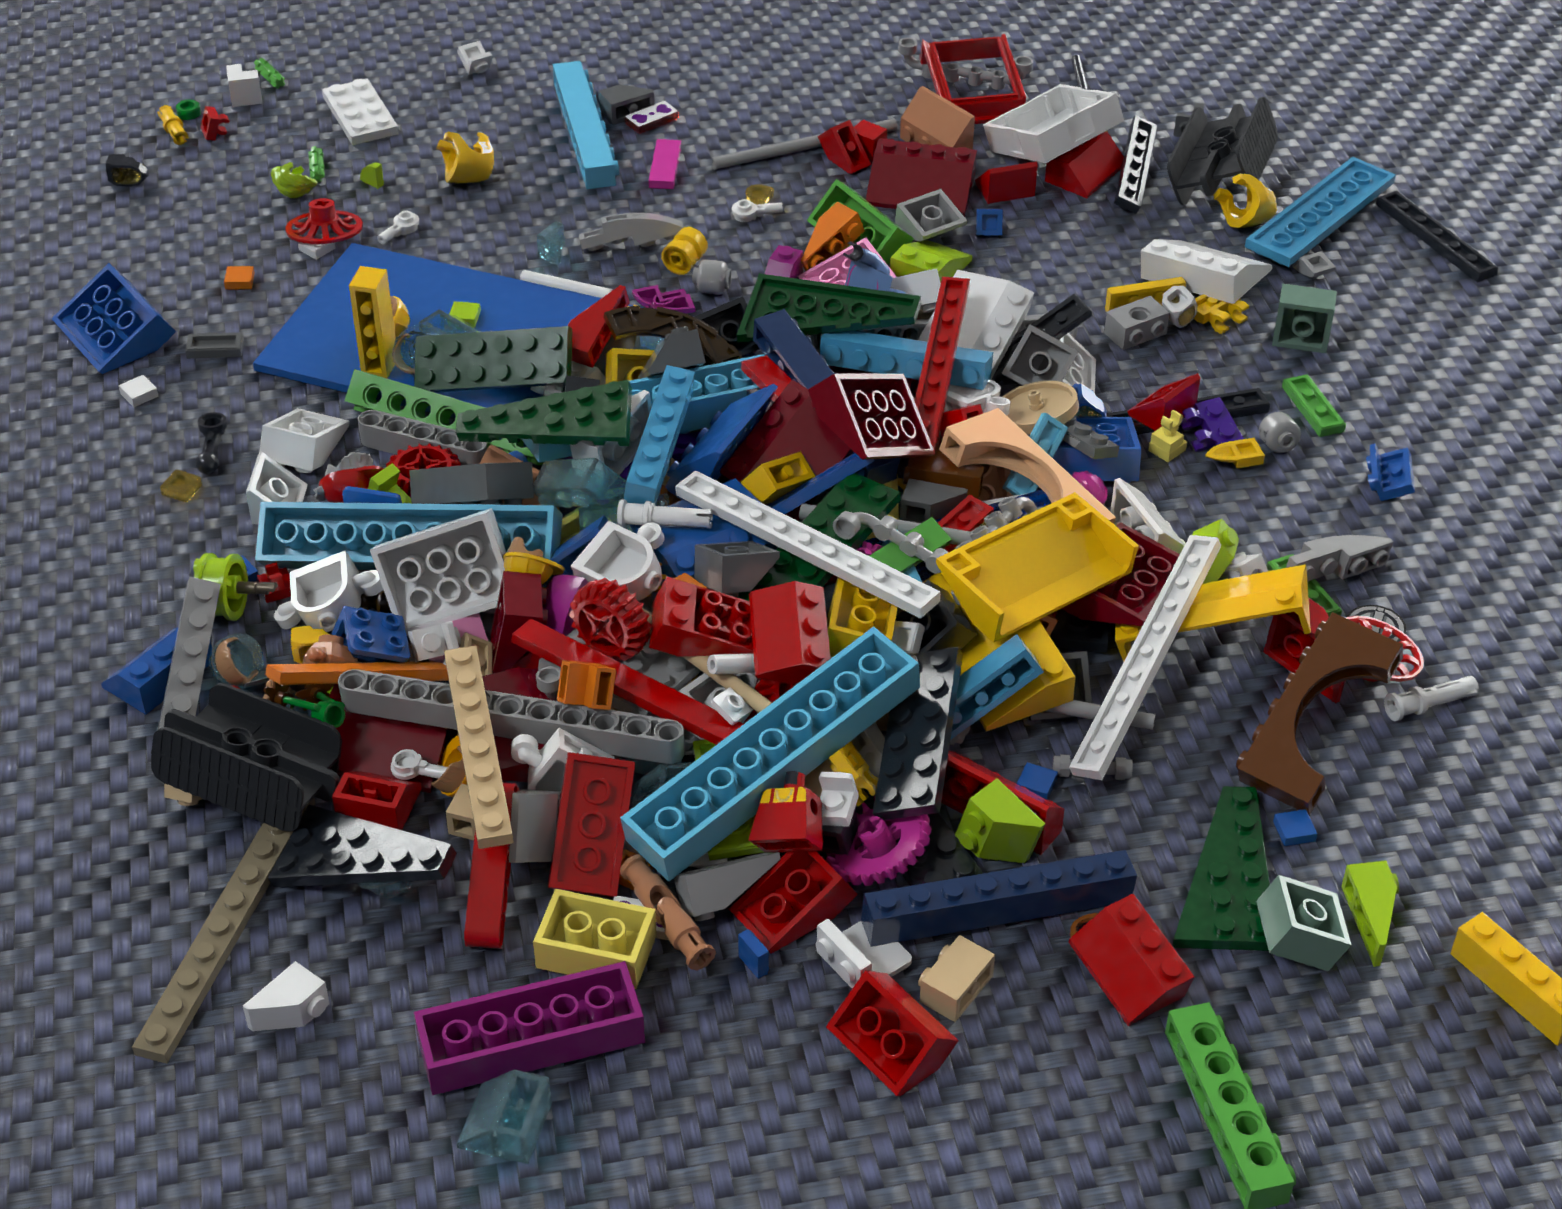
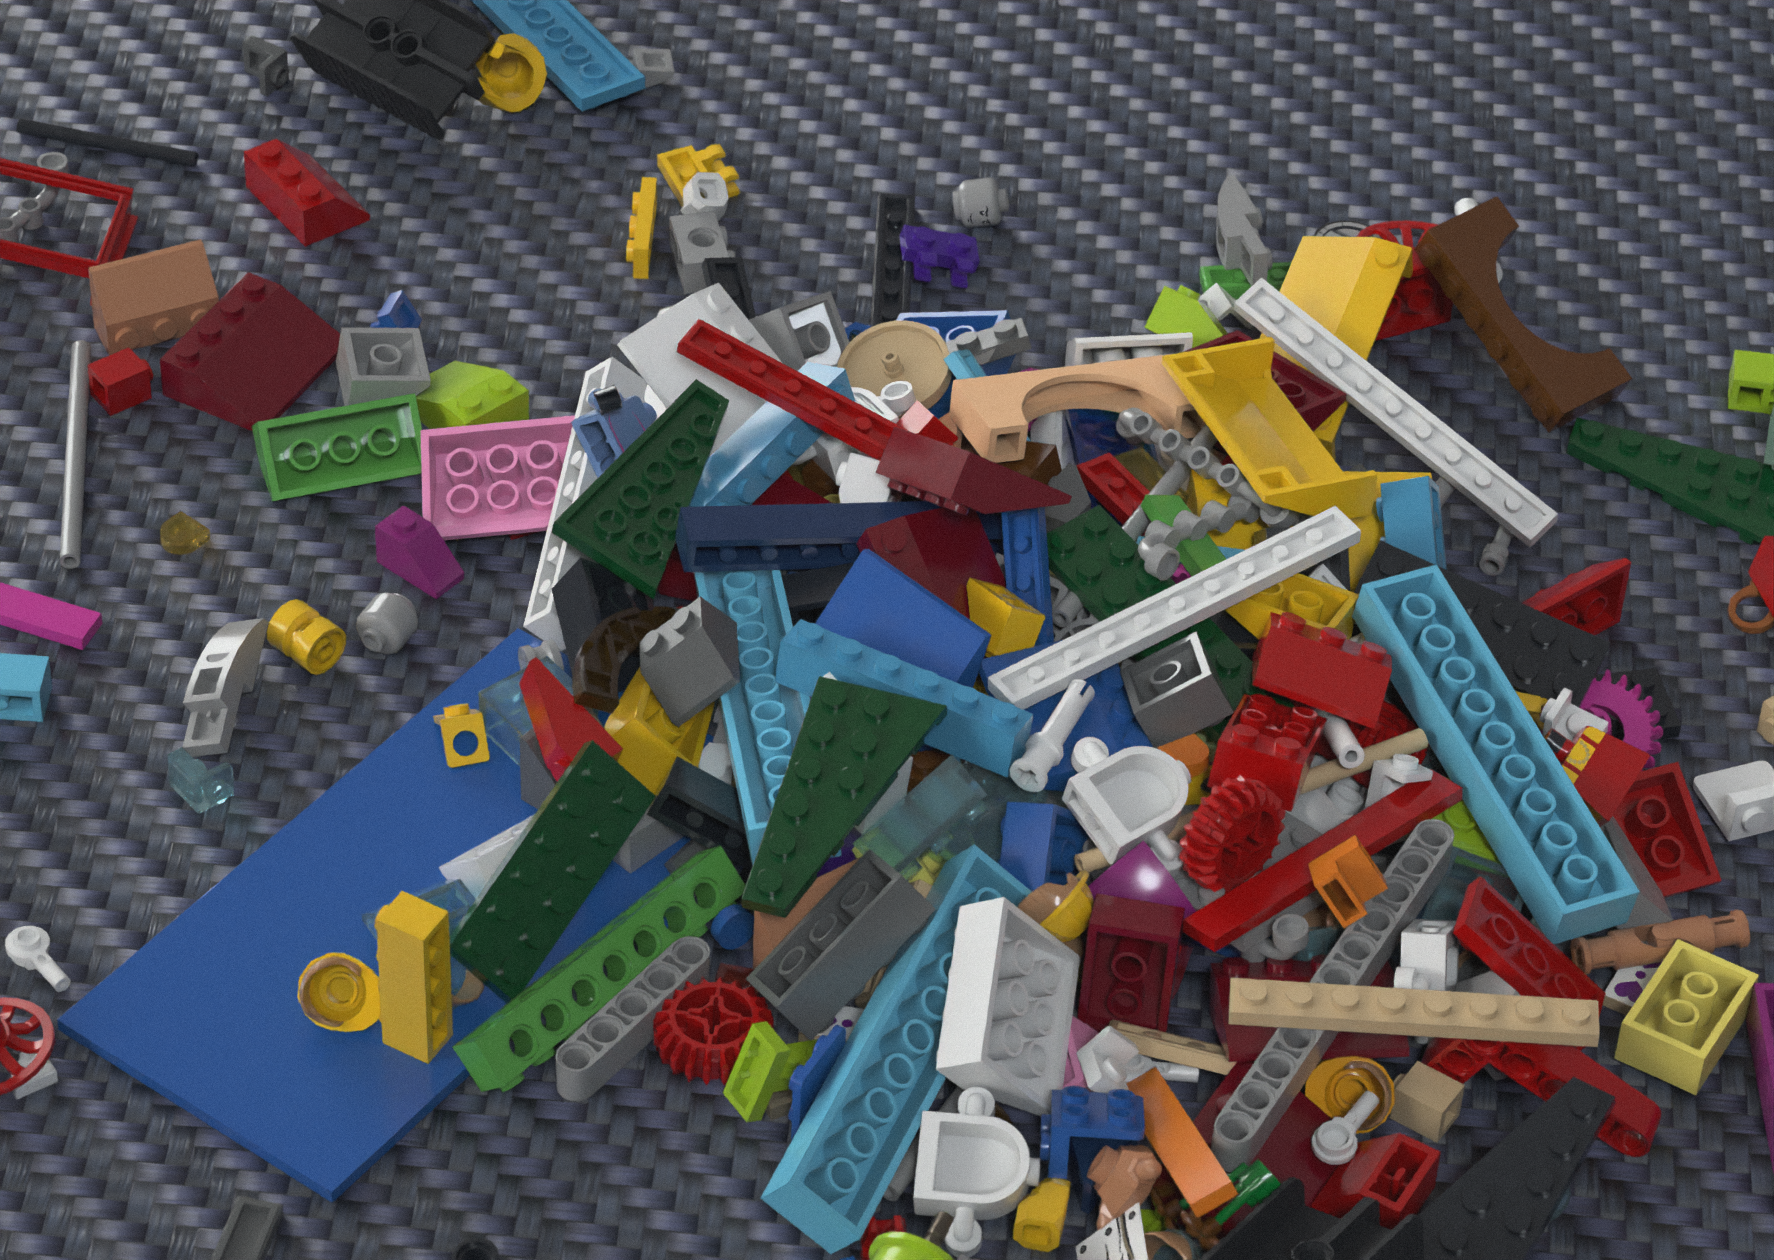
camera: 75 degrees left, 0 degrees up
(239, 277) = (69, 1182): orange tile -> none
(272, 484) = (684, 1215): white slope -> none
(302, 439) = (564, 1154): white slope -> none
(352, 471) = (707, 1110): red hair -> none
(467, 311) = (341, 912): lime tile -> none
(564, 284) = (310, 790): white piece -> none
(676, 300) = (419, 686): magenta brick -> none
(746, 210) = (220, 555): white plate -> none
(753, 953) = (1731, 889): blue tile -> none
(764, 373) = (790, 573): red tile -> none
(832, 234) = (368, 468): orange slope -> none
(844, 147) = (125, 410): red slope -> none
(997, 897) = (1708, 662): dark blue brick -> none
(999, 825) = (1611, 610): lime slope -> none
(1008, 182) = (309, 269): red slope -> none
(1038, 779) = (1513, 584): blue tile -> none
(1053, 123) = (245, 175): white tile -> none
(1135, 164) = (329, 143): plate -> none
(1167, 441) = (954, 293): light yellow piece -> none
(1173, 396) = (895, 270): red slope -> none
(1203, 268) = (609, 159): white slope -> none
(1240, 452) = (1000, 248): yellow plate -> none
(1295, 827) = (1640, 410): blue tile -> none
(1304, 318) = (783, 104): sand green brick -> none
(1313, 405) = (925, 163): bright green tile -> none
(1390, 472) = (1092, 141): blue bracket -> none

